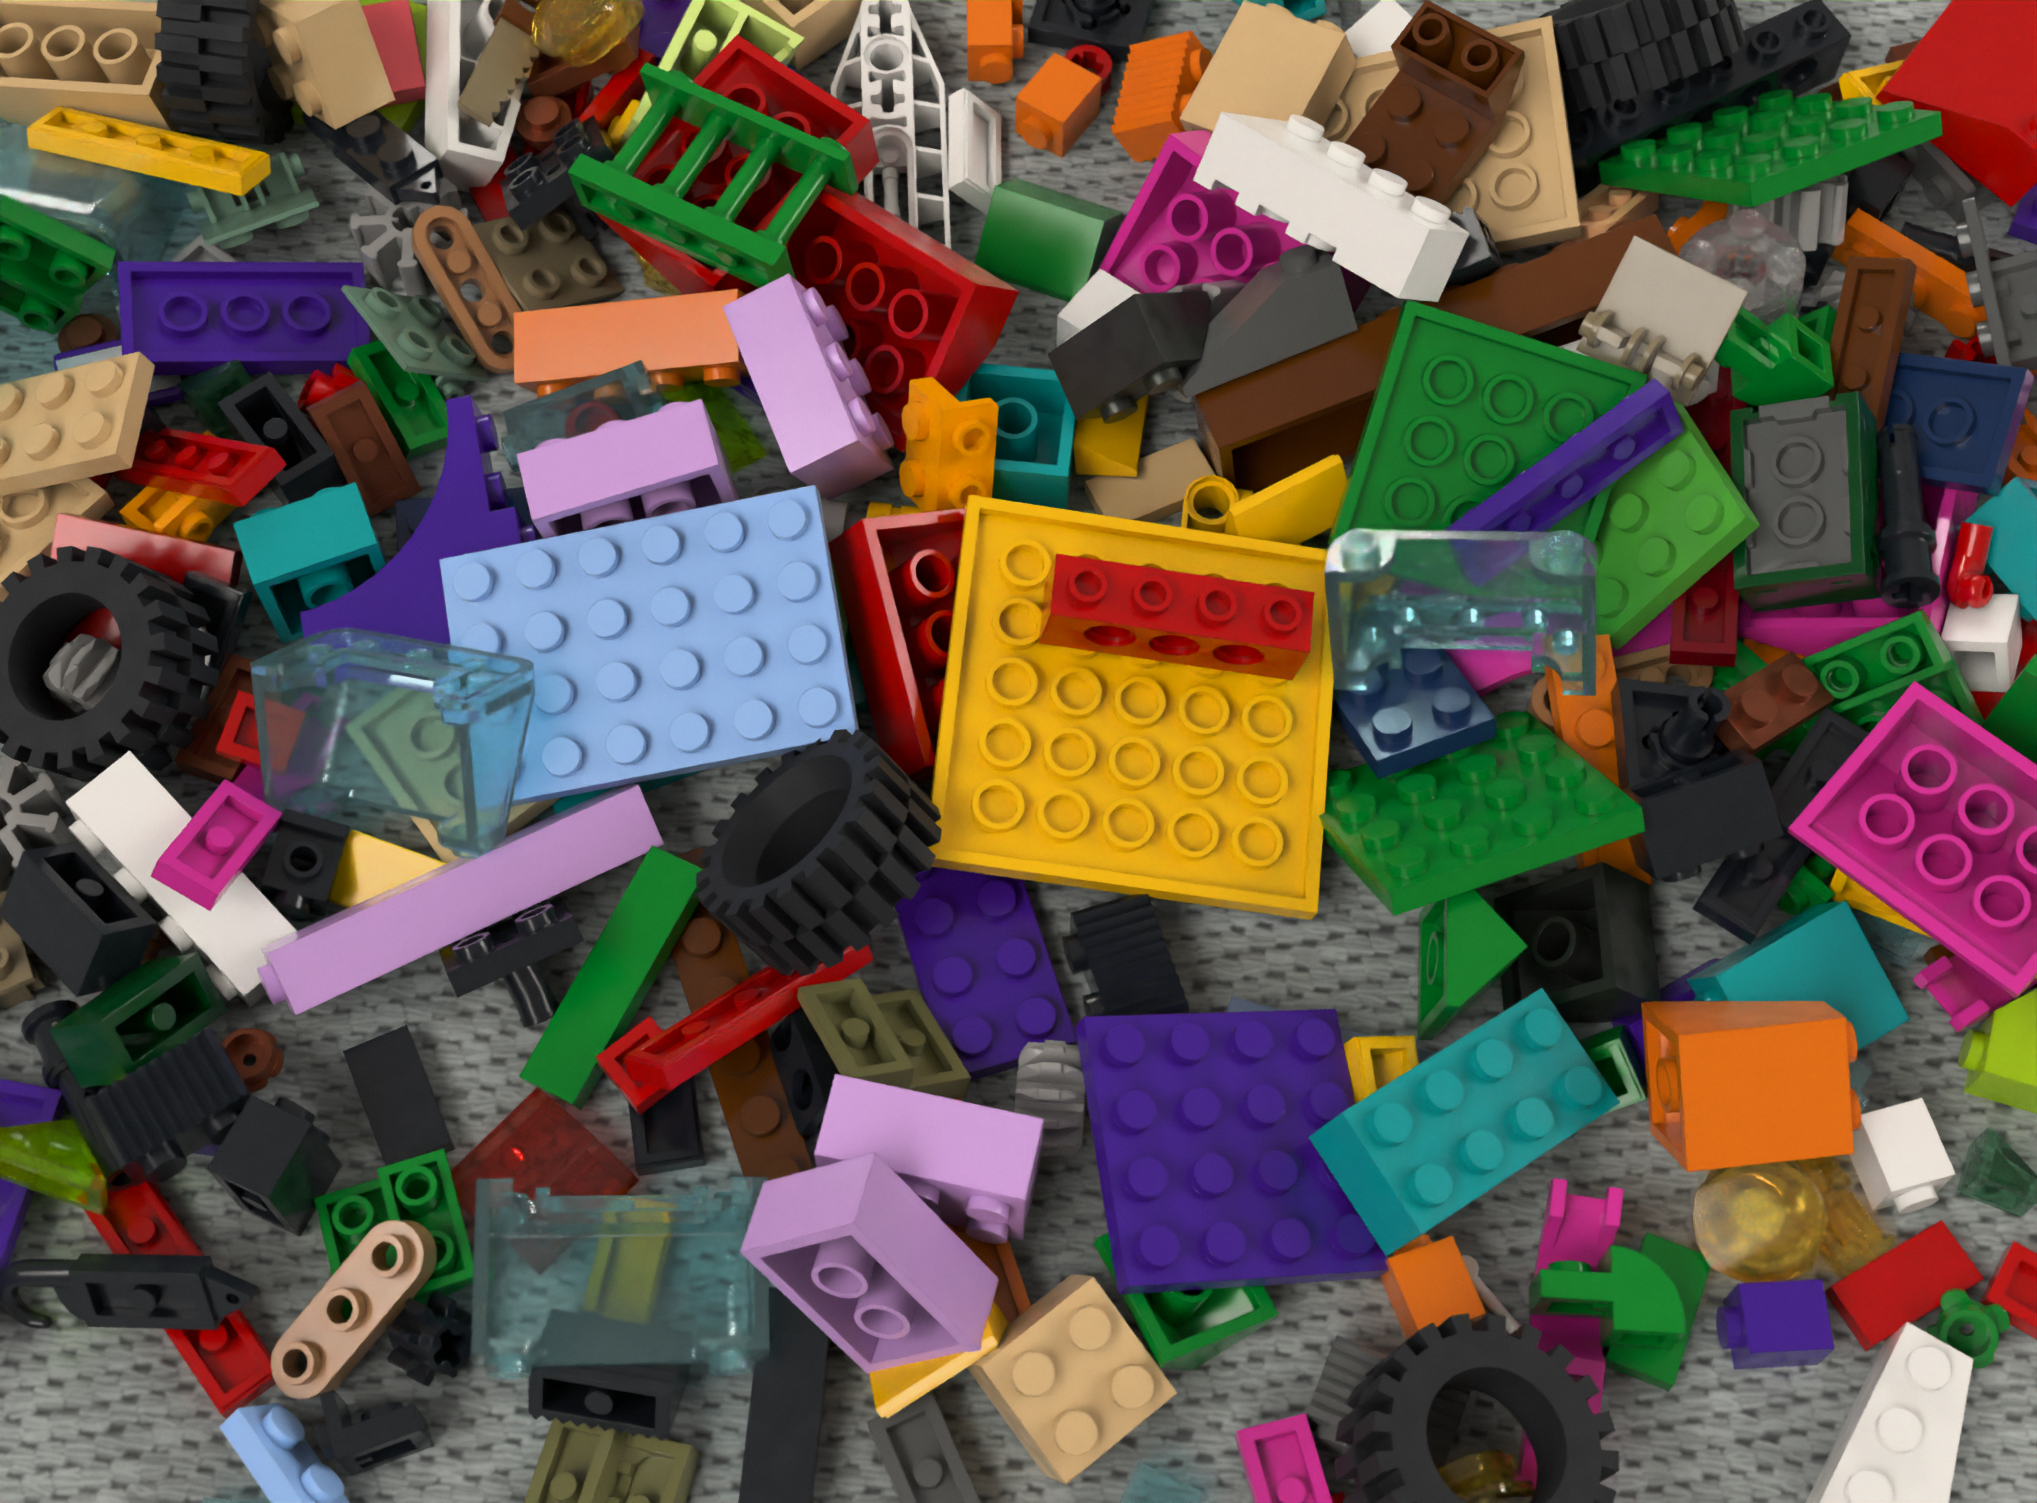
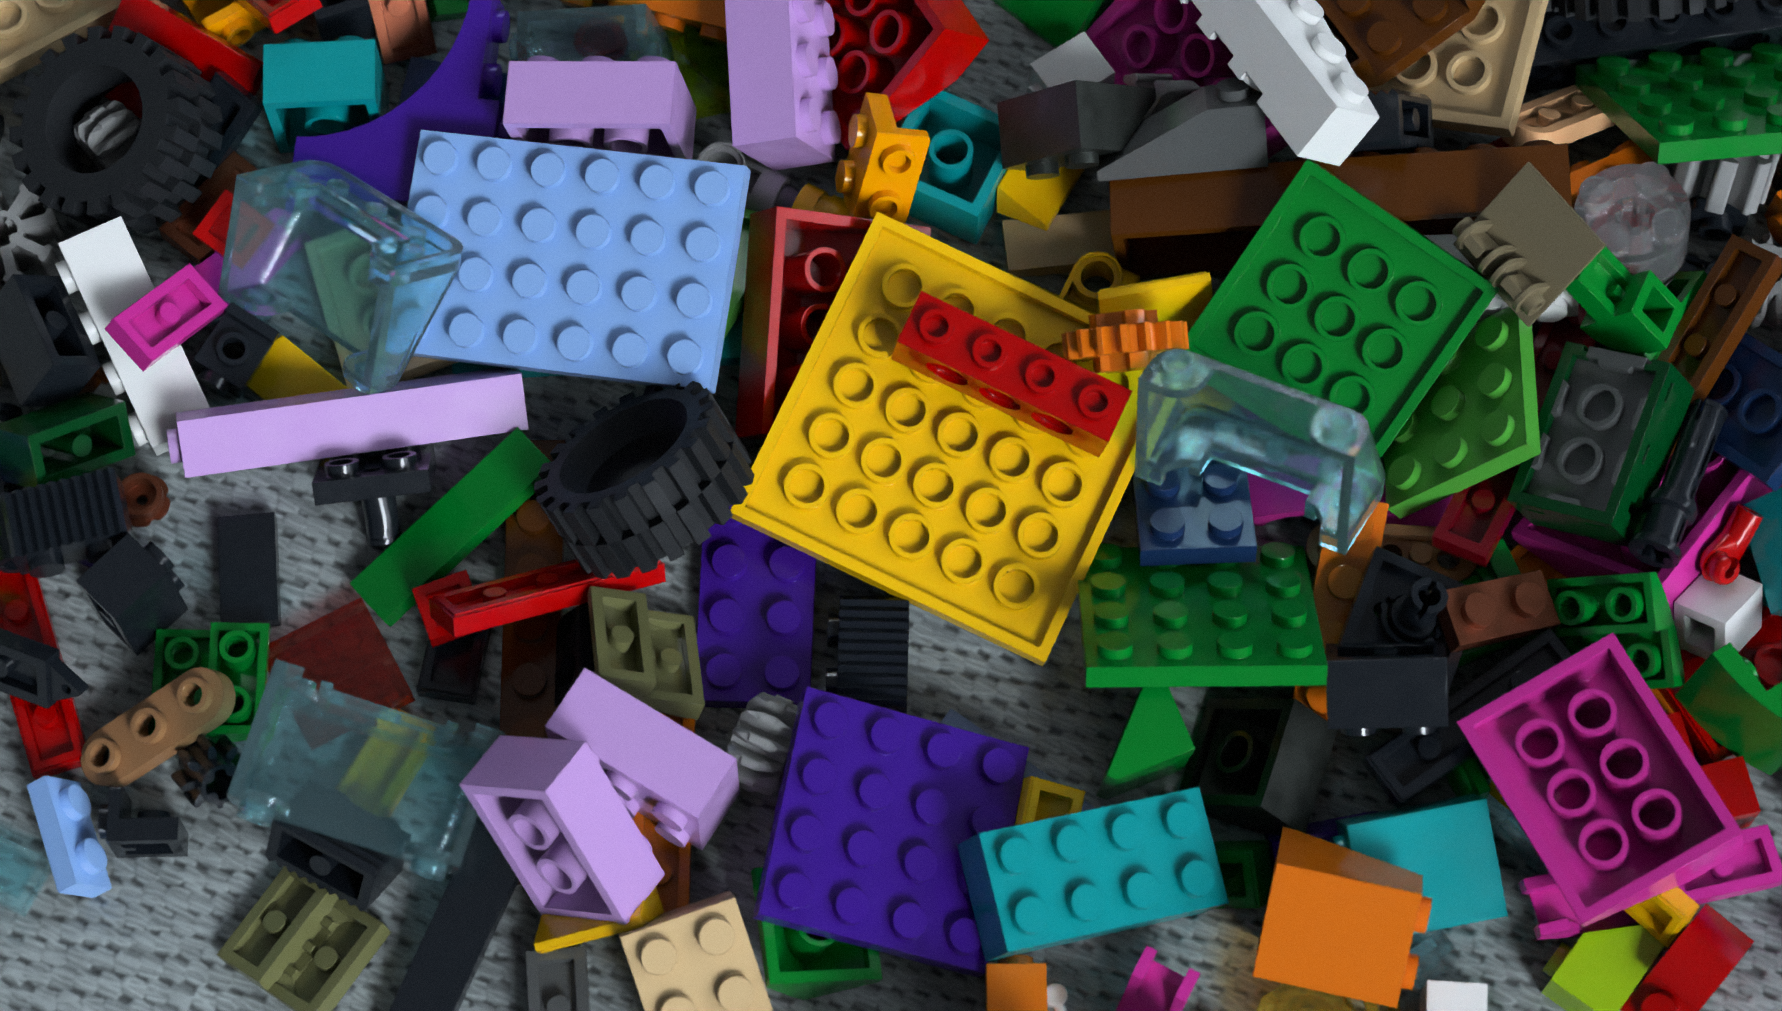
camera: 20 degrees right, 5 degrees up
(1285, 543) = (1123, 340): none -> orange gear
(1580, 465) = (1400, 354): dark purple plate -> none

